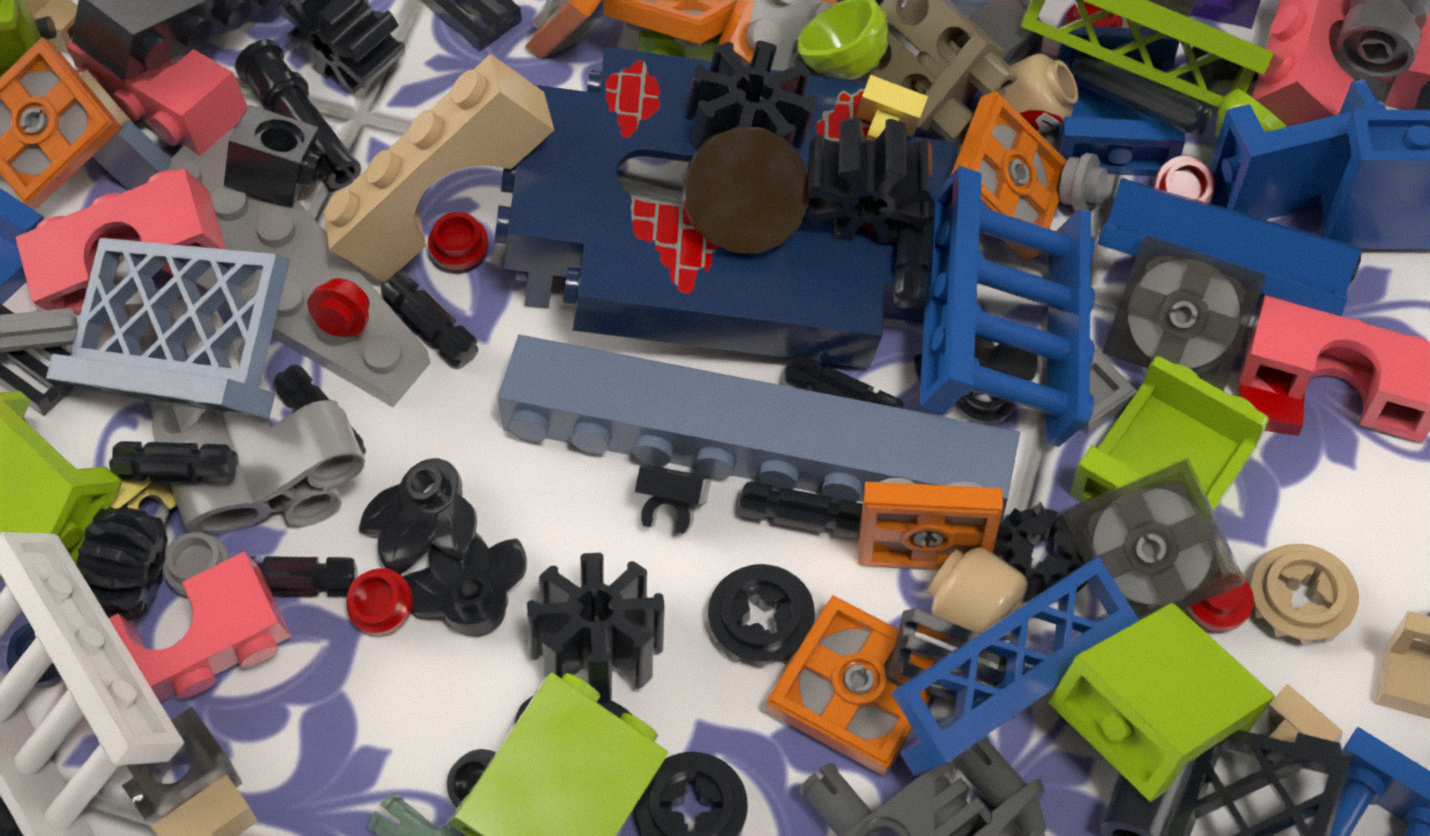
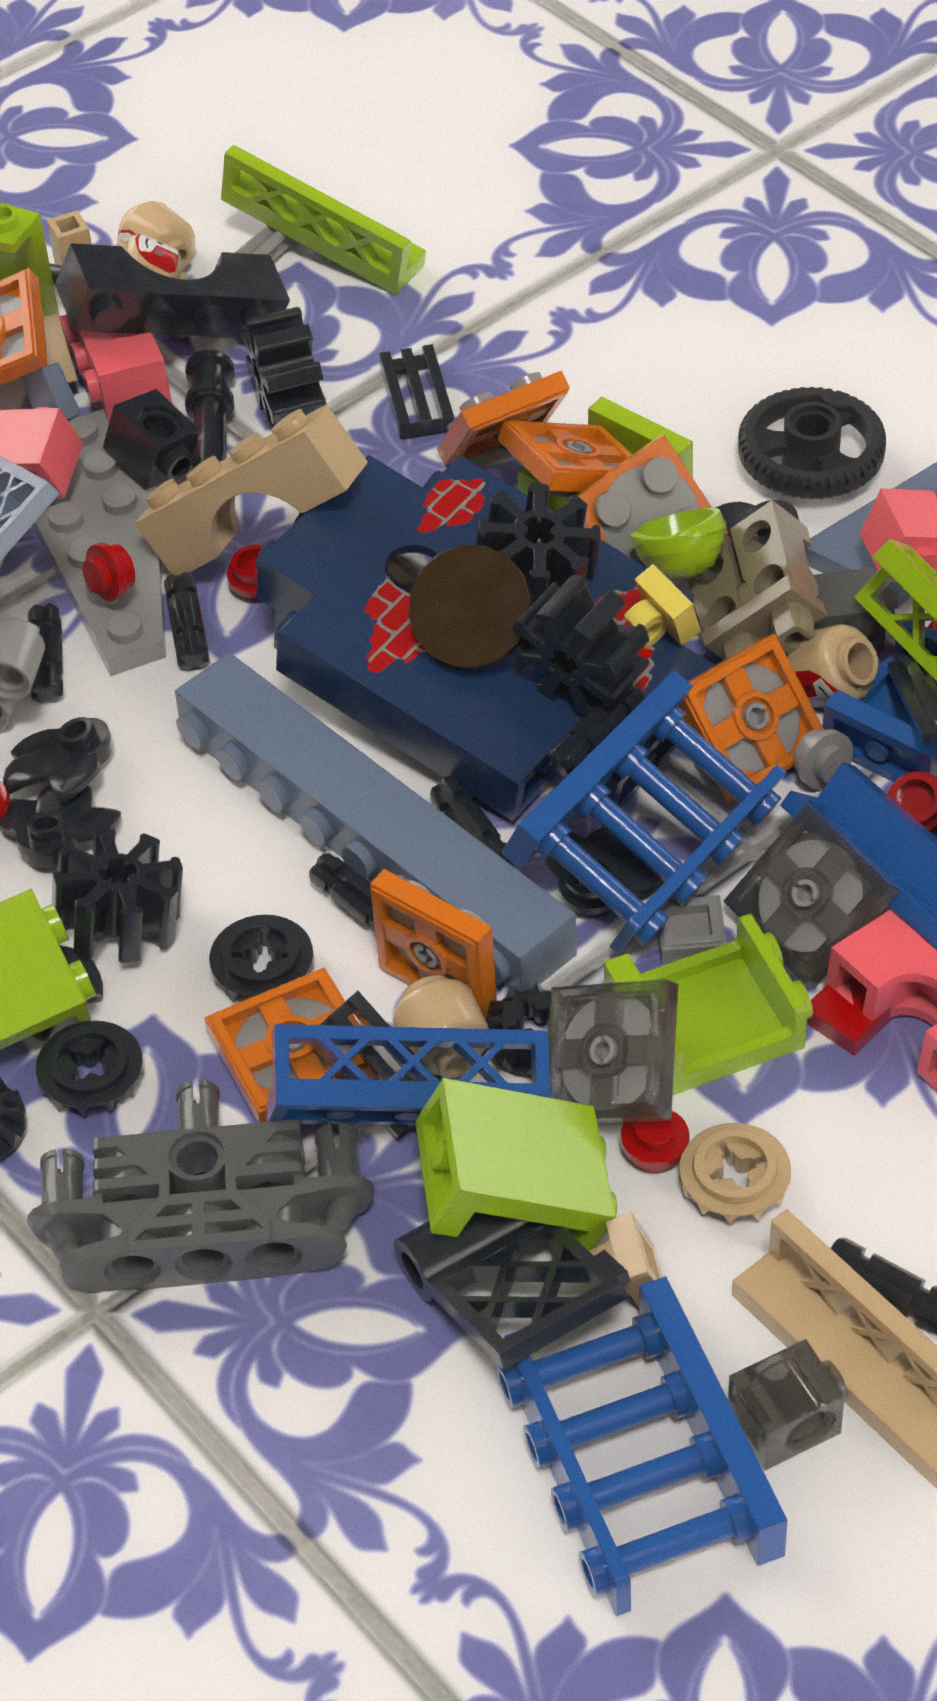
camera: 35 degrees right, 10 degrees down
(671, 488) = (265, 830): black tile -> none

